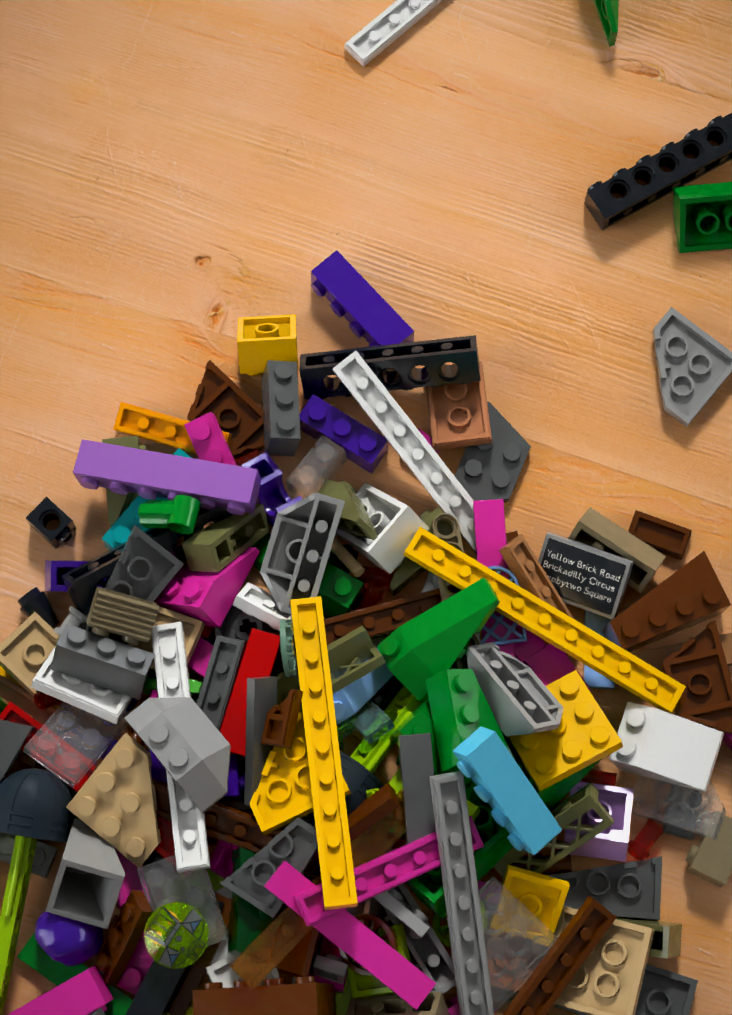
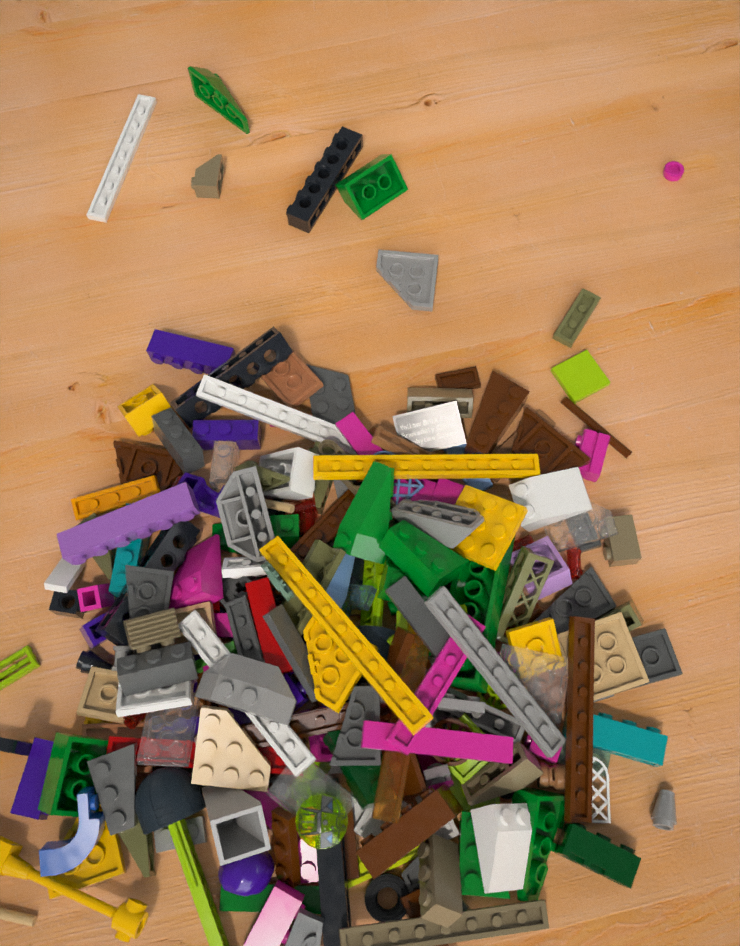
camera: 30 degrees left, 5 degrees down
(61, 489) = (63, 576): none -> white tile
(83, 535) = (95, 597): none -> dark pink brick
(174, 514) = (150, 543): green piece -> none
(209, 440) = (141, 485): dark pink plate -> none
(225, 540) = (192, 542): olive slope -> none
(282, 721) = (303, 630): reddish brown tile -> none
(506, 790) = (477, 580): medium azure brick -> none
(522, 84) = (209, 178): none -> dark tan slope

